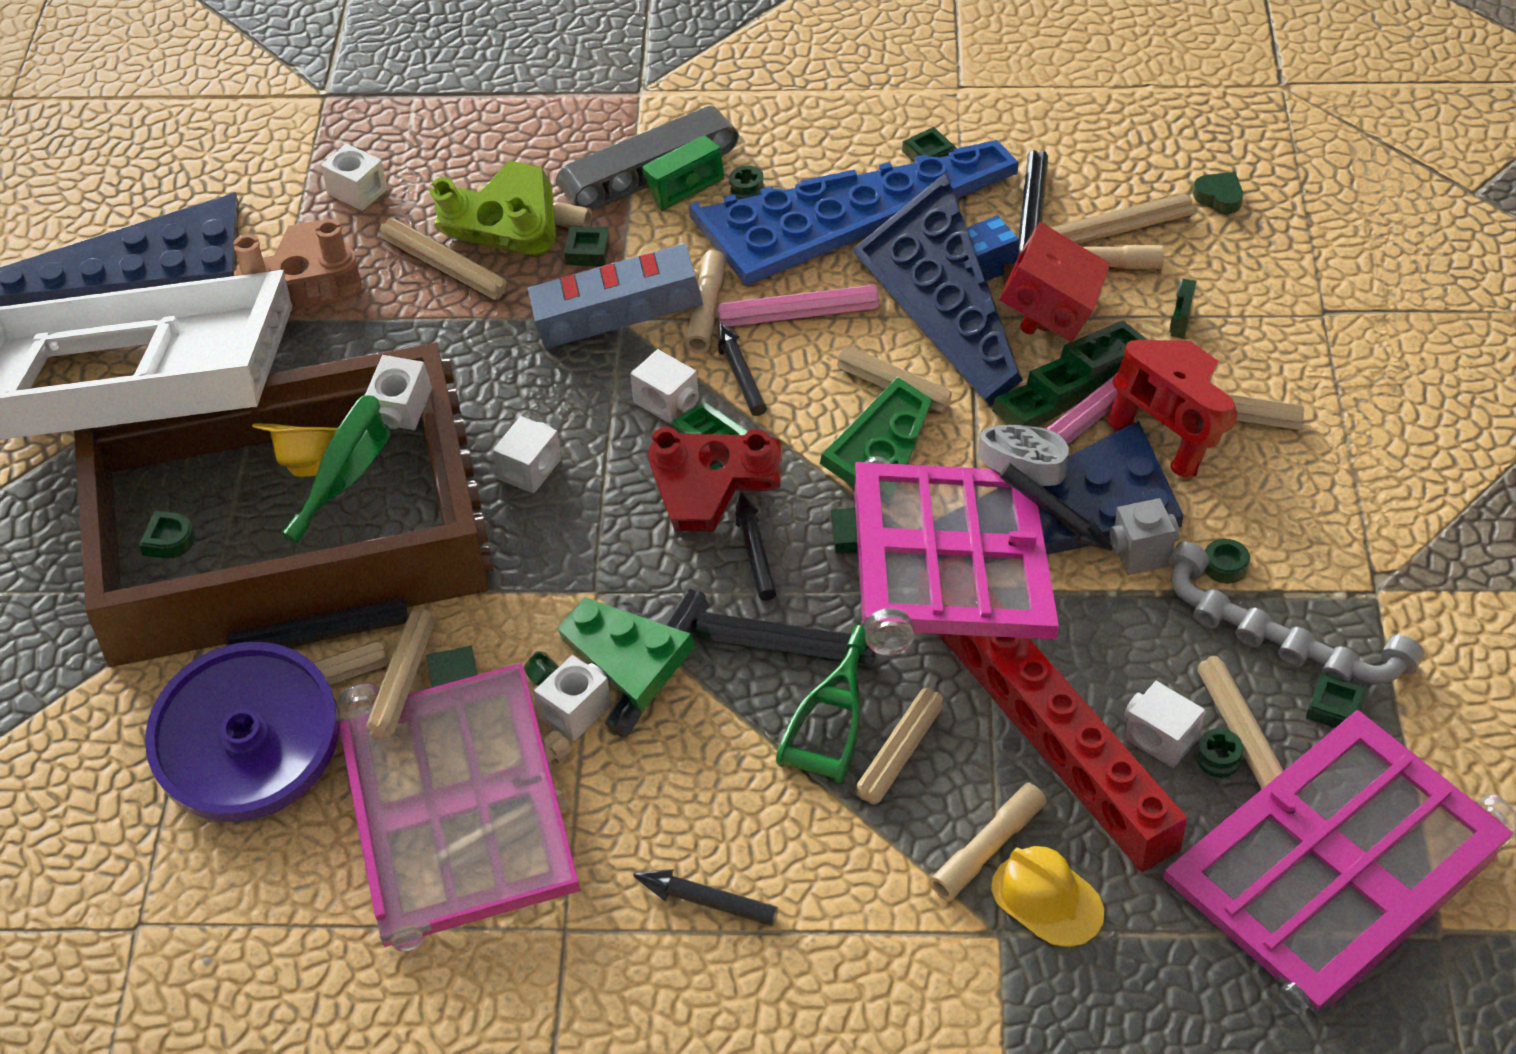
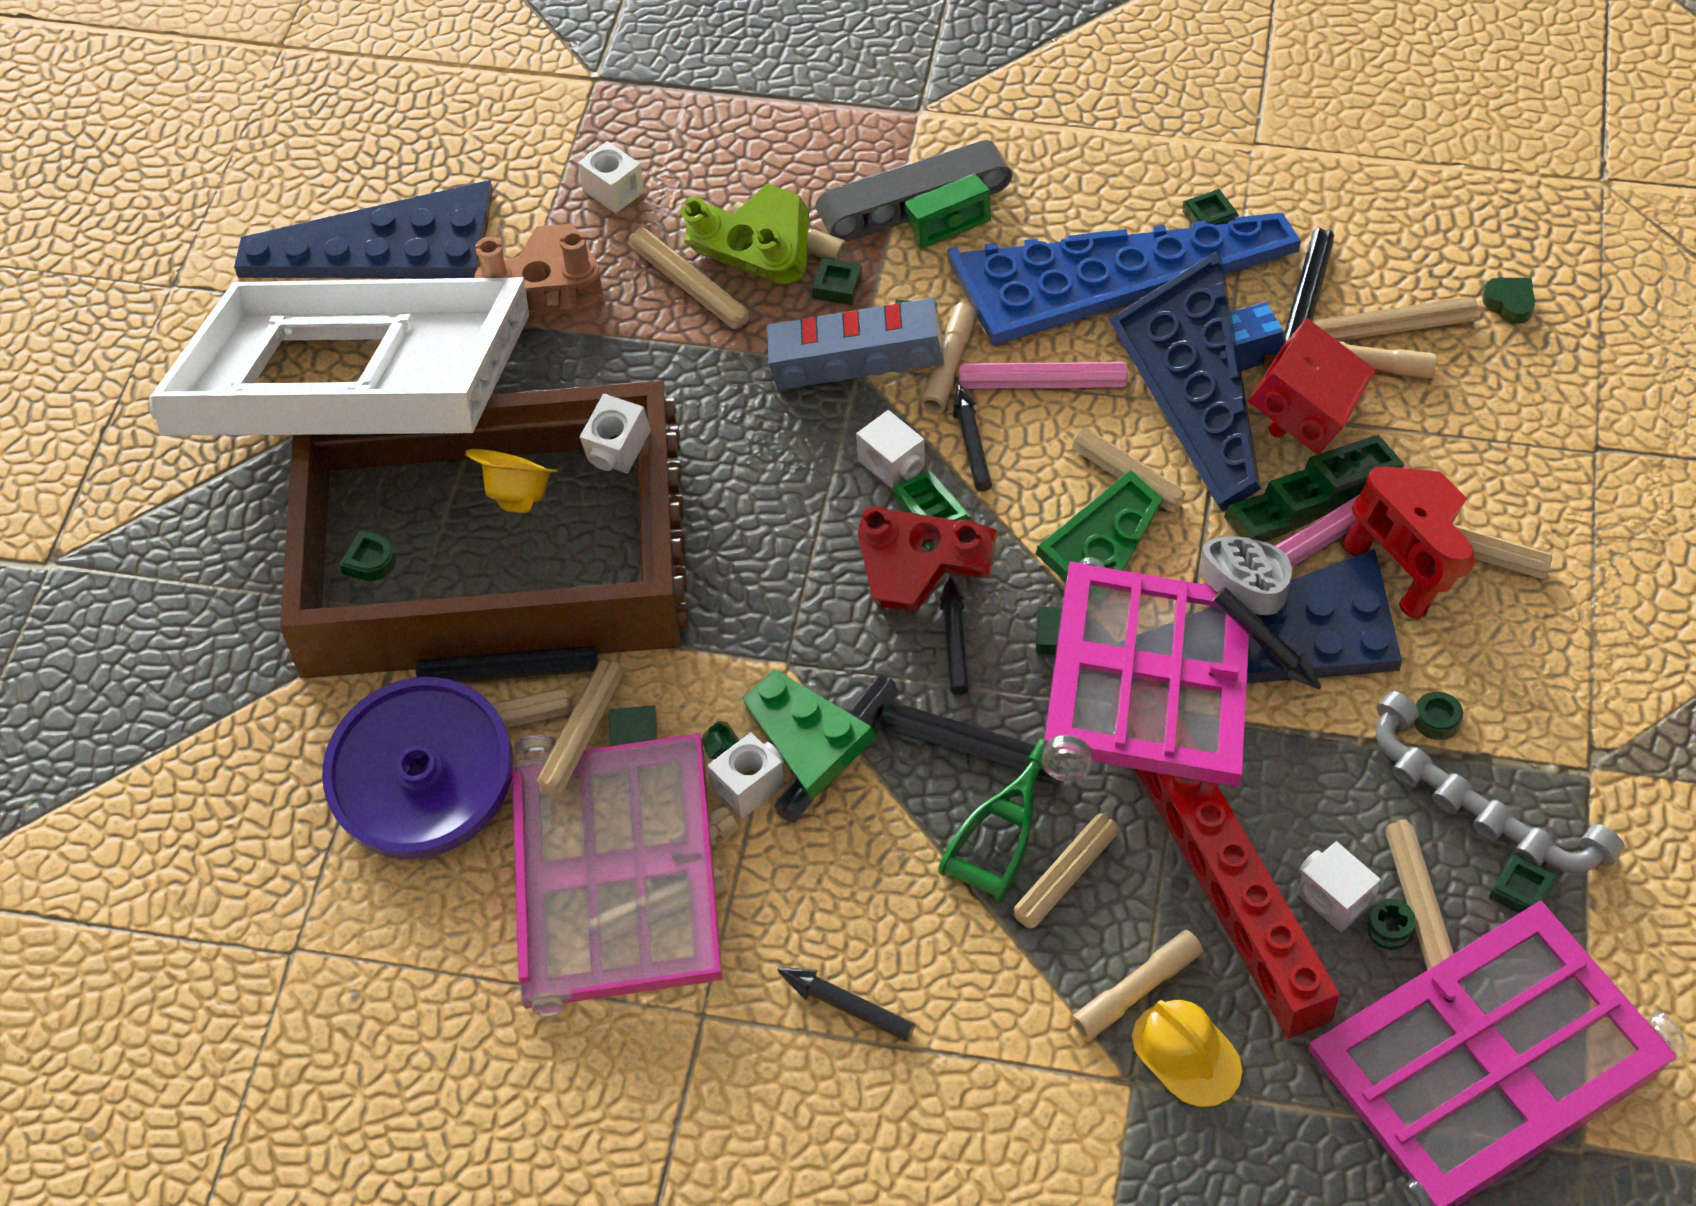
camera: 10 degrees right, 5 degrees up
(343, 460) = (551, 501): green piece -> none
(527, 454) = (740, 506): white brick -> none
(746, 174) = (1012, 219): dark green bush -> none
(1144, 536) = (1355, 679): light grey brick -> none
(1183, 309) = (1446, 428): dark green tile -> none

